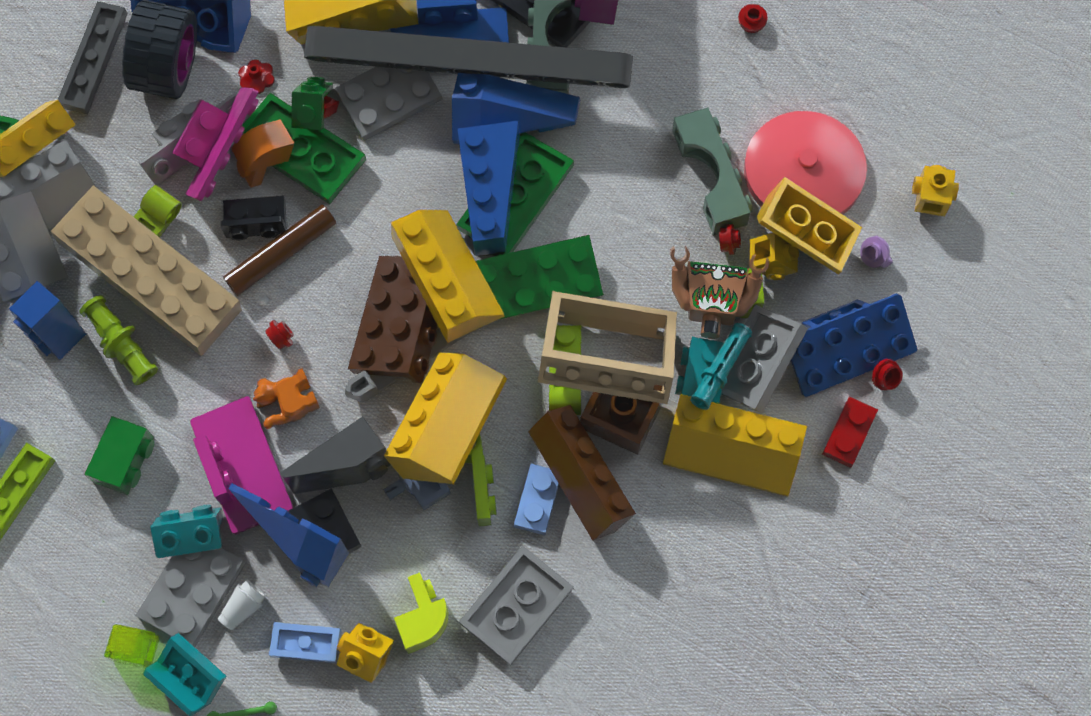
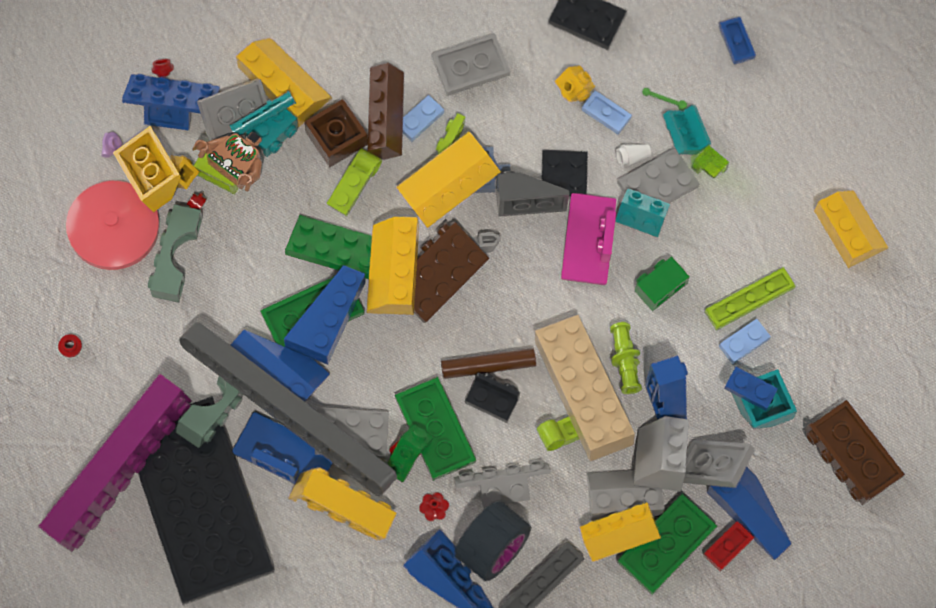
camera: 155 degrees left, 0 degrees up
(210, 137) = (490, 450): dark pink bracket -> none
(260, 149) = (463, 427): orange brick -> none
(279, 334) = (520, 305): red plate -> none
(288, 393) = (536, 264): orange animal -> none
(305, 544) = (575, 151): blue wedge -> none
(428, 622) = (529, 82): neon yellow brick -> none
(603, 374) = (343, 135): tan window -> none
(850, 432) = (208, 51): red plate -> none
(935, 190) = (46, 156): yellow brick -> none

